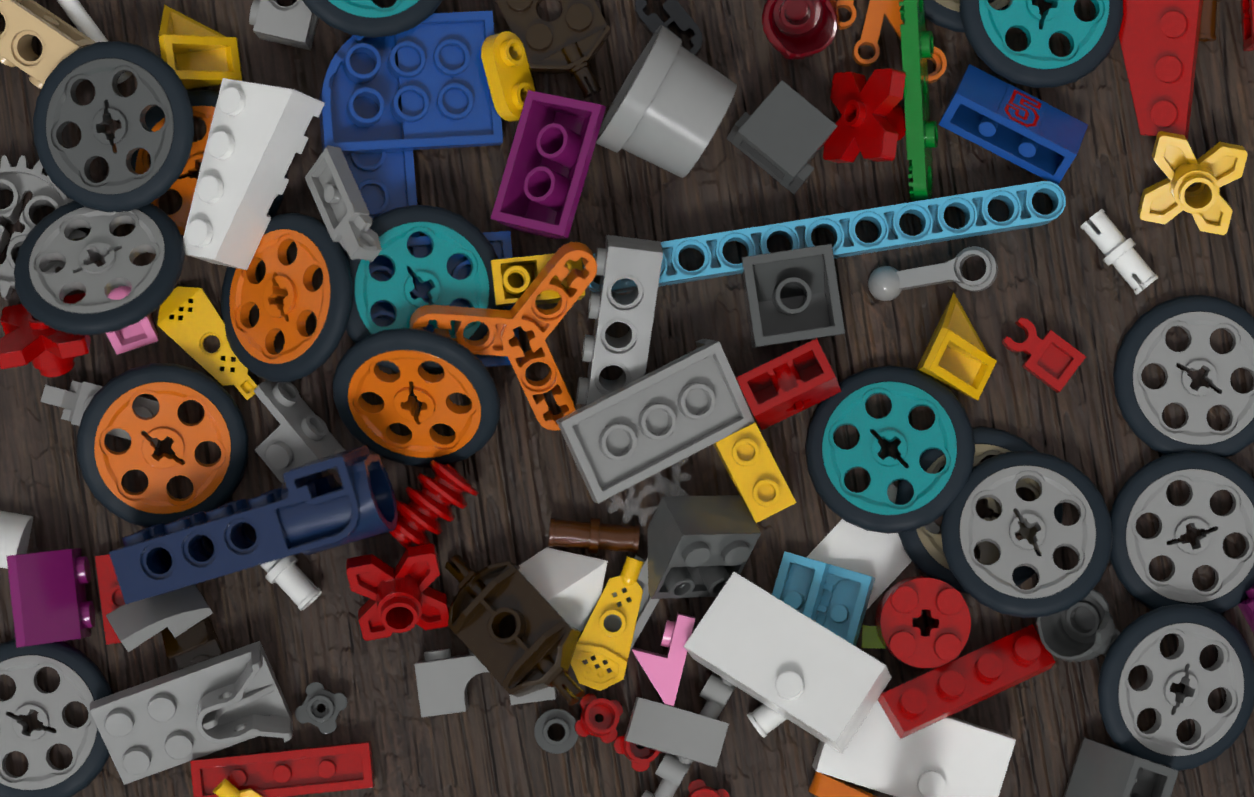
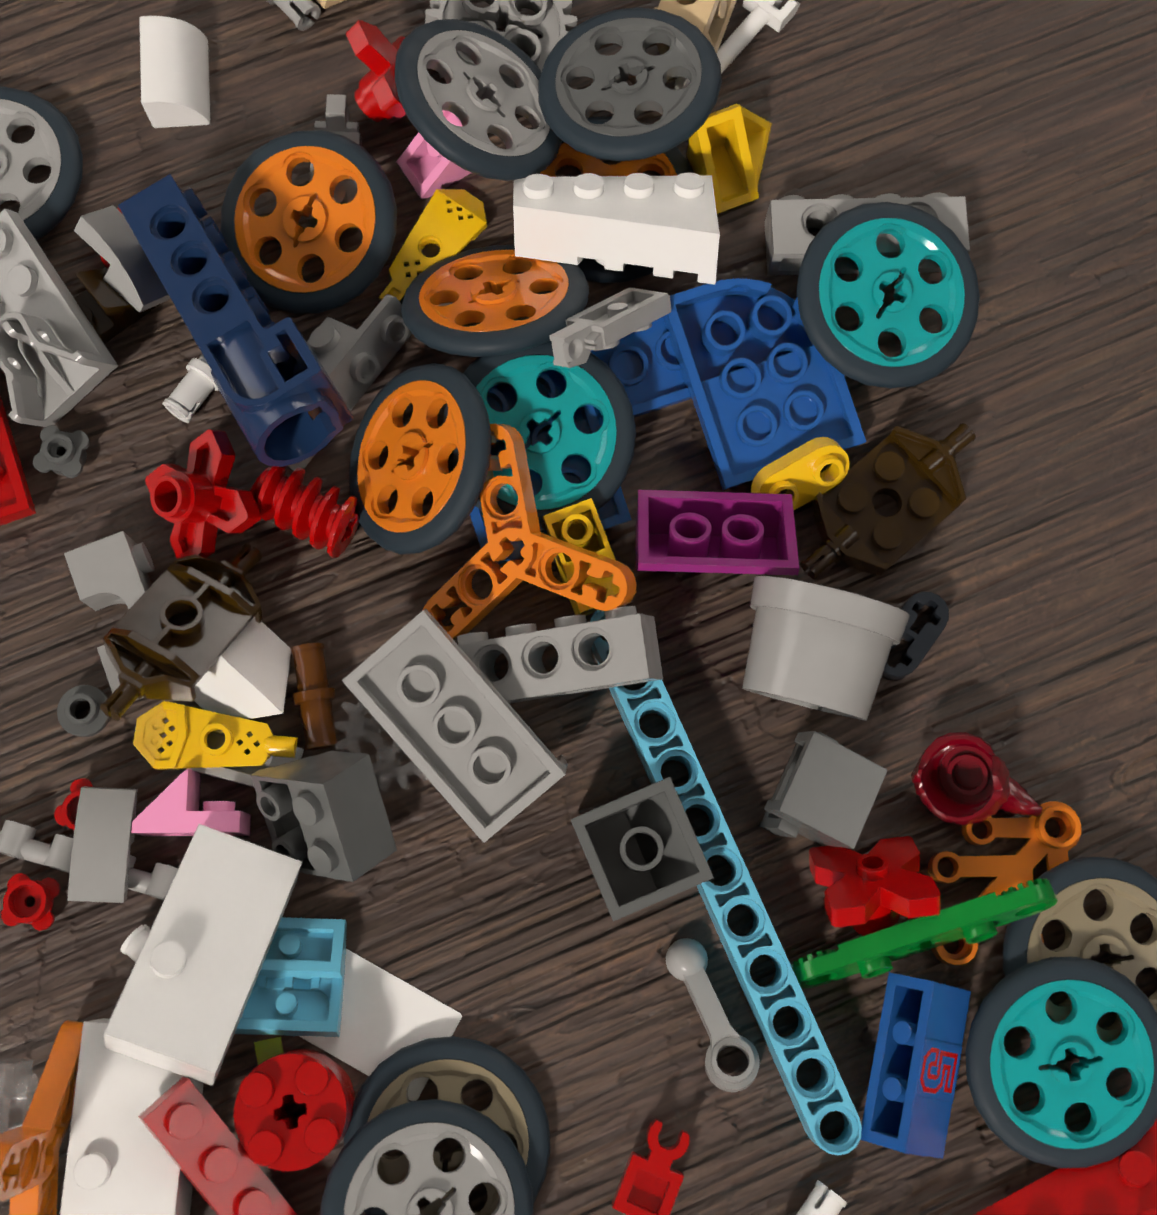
camera: 70 degrees right, 10 degrees down
(50, 596) = (118, 141): magenta slope -> none
(607, 709) = (96, 765): red plate -> none
(754, 472) = (425, 860): yellow brick -> none
(788, 384) = (538, 872): red brick -> none
(932, 492) = (528, 1081): wedge -> none
(957, 354) = (626, 1068): yellow slope -> none

